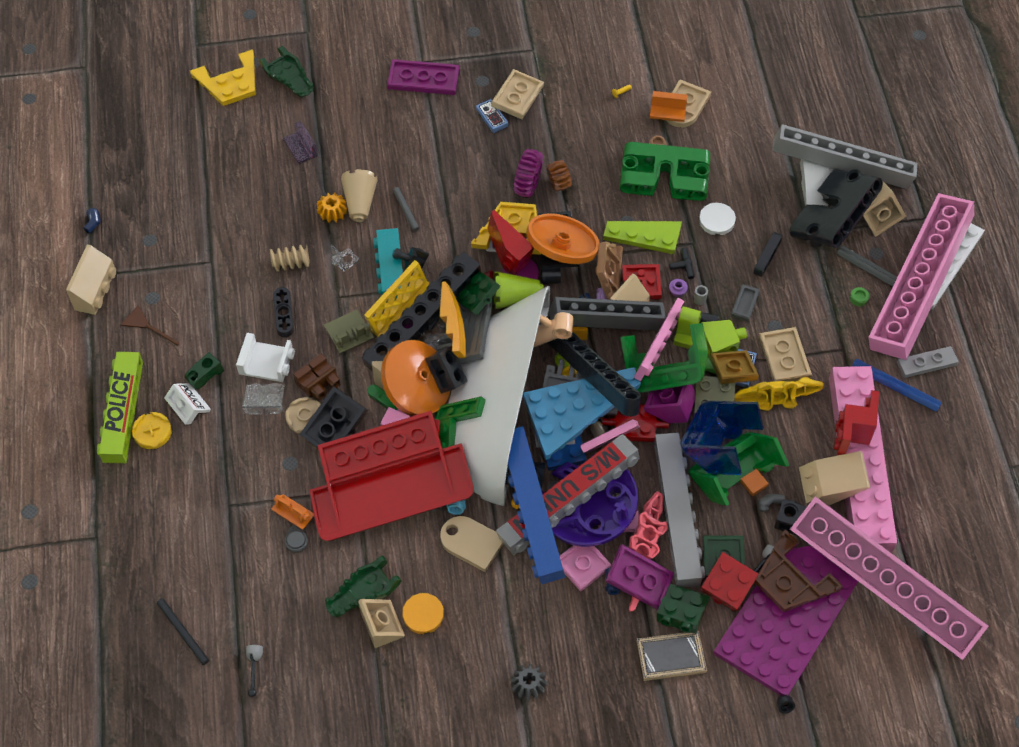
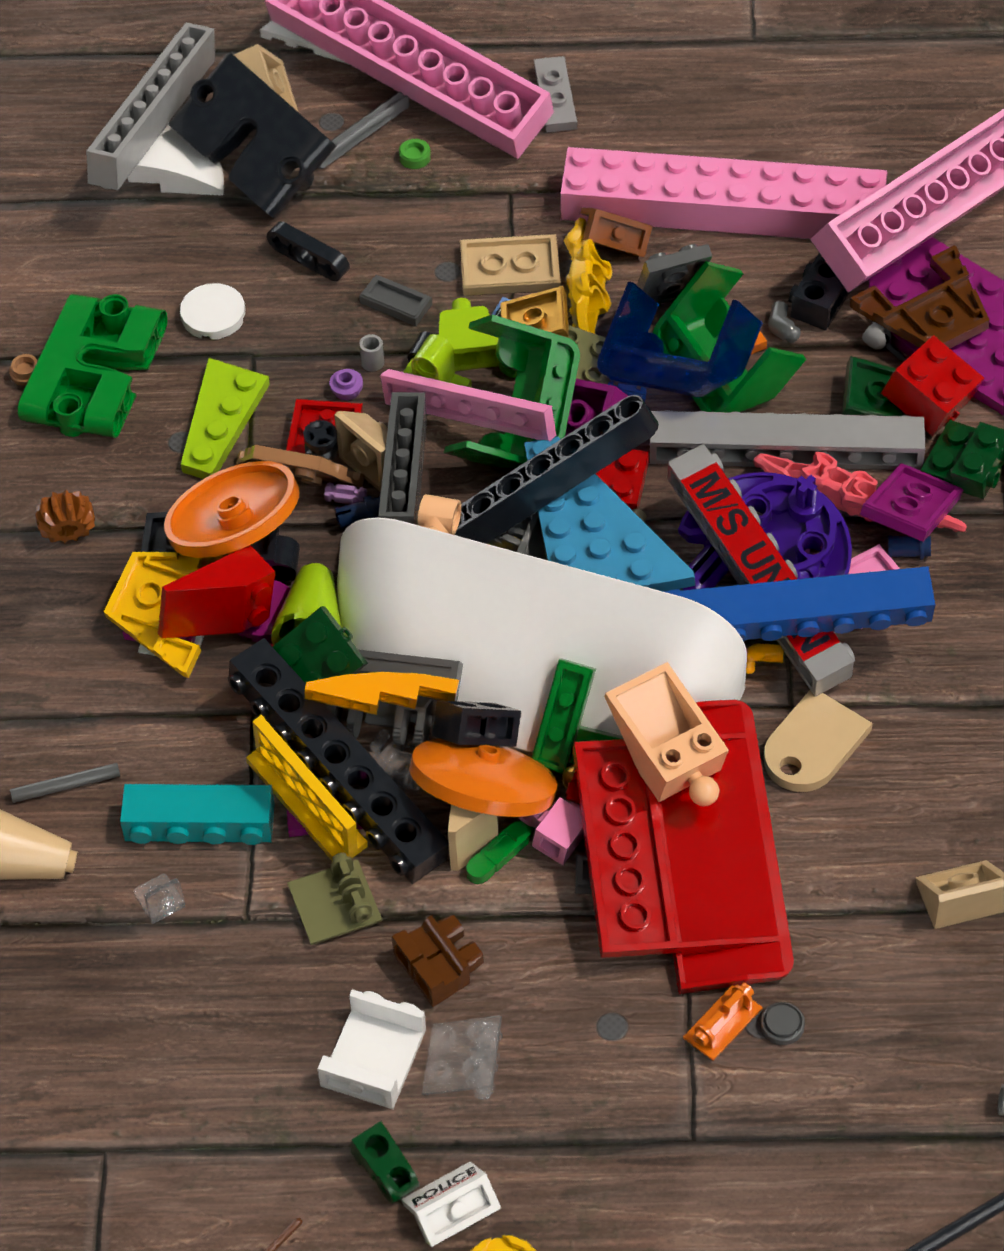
camera: 80 degrees left, 5 degrees down
(288, 318) = (277, 1025): black beam -> none
(289, 258) = (141, 989): tan piece -> none
(300, 413) = (512, 989): tan tile -> none
(331, 207) = (32, 906): light orange gear -> none
(334, 418) = (542, 929): black slope -> none
(365, 583) = (900, 910): dark green animal -> none
(415, 254) = (197, 769): black piece -> none
(423, 613) = (947, 827): light orange tile -> none
(439, 445) = (664, 726): none -> light nougat slope
(528, 173) = (50, 559): magenta gear -> none
(610, 436) = (653, 490): bright pink tile -> none
(623, 273) = (316, 435): none -> black wheel
(686, 263) = (297, 366): black piece -> none
(777, 428) = (667, 275): none -> dark grey plate
(816, 401) = (616, 232): none -> dark orange panel
(834, 478) = (769, 220): tan slope -> none
(856, 424) = (696, 170): red bracket -> none
(901, 387) = (593, 135): blue axle -> none

